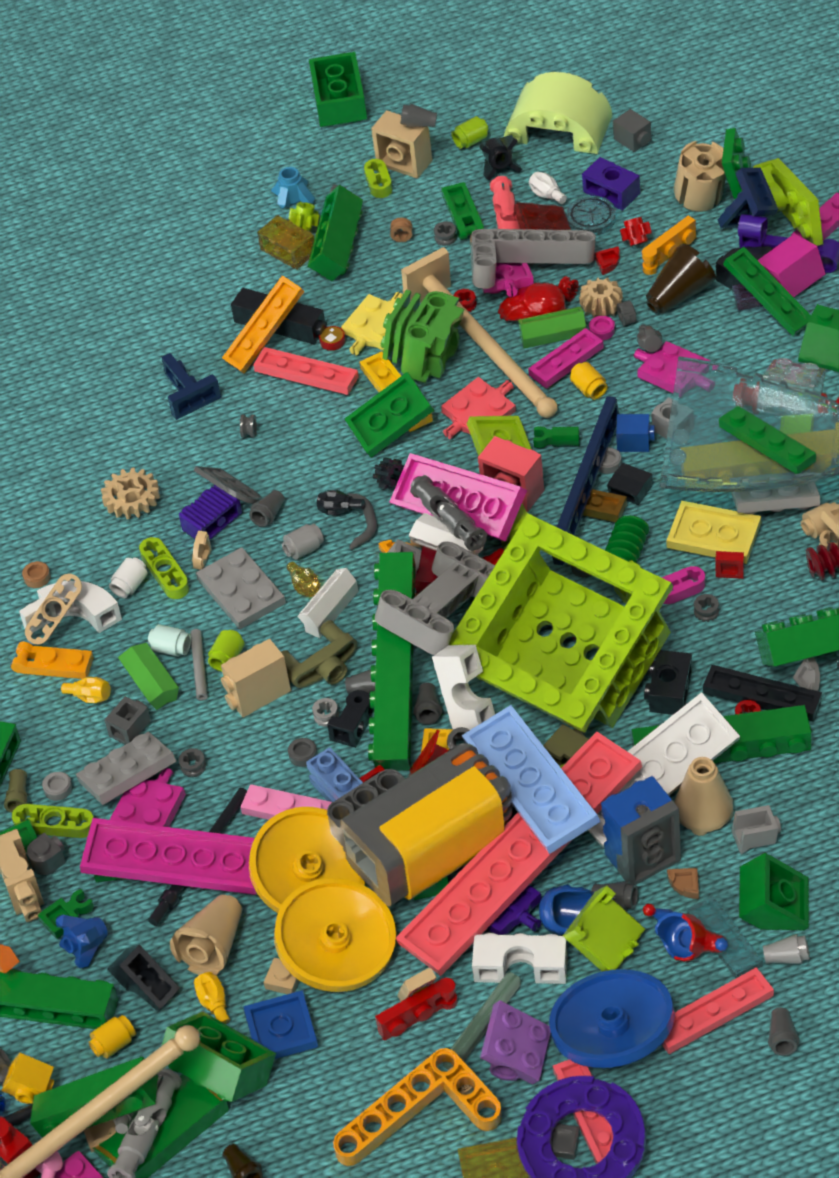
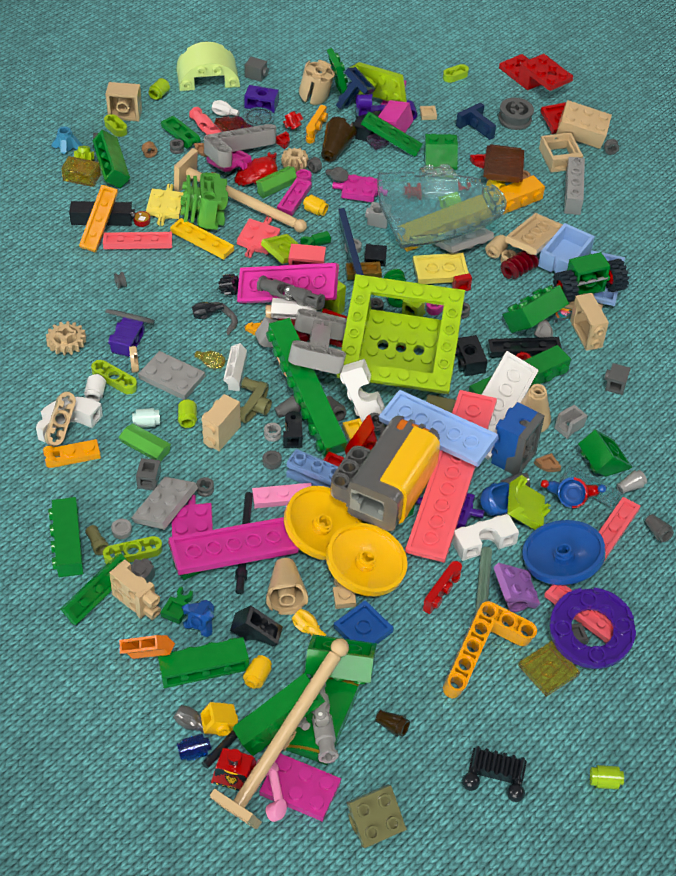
camera: 35 degrees left, 0 degrees up
(36, 574) = (28, 404): medium nougat tile -> none
(88, 689) = (110, 462): yellow piece -> none
(191, 393) = (68, 270): dark blue bracket -> none
(198, 664) = (172, 427): light grey piece -> none
(266, 509) = (161, 325): dark grey cone -> none
(302, 541) = (197, 337): light grey brick -> none
(337, 89) = (62, 80): green brick -> none
(389, 414) = (209, 251): green plate -> none
(416, 983) = (438, 572): tan tile -> none
(417, 117) = (133, 80): dark grey cone -> none
(498, 155) = (184, 96): black brick -> none
(634, 432) = (361, 226): blue brick -> none
(767, 440) = (448, 208): green plate -> none

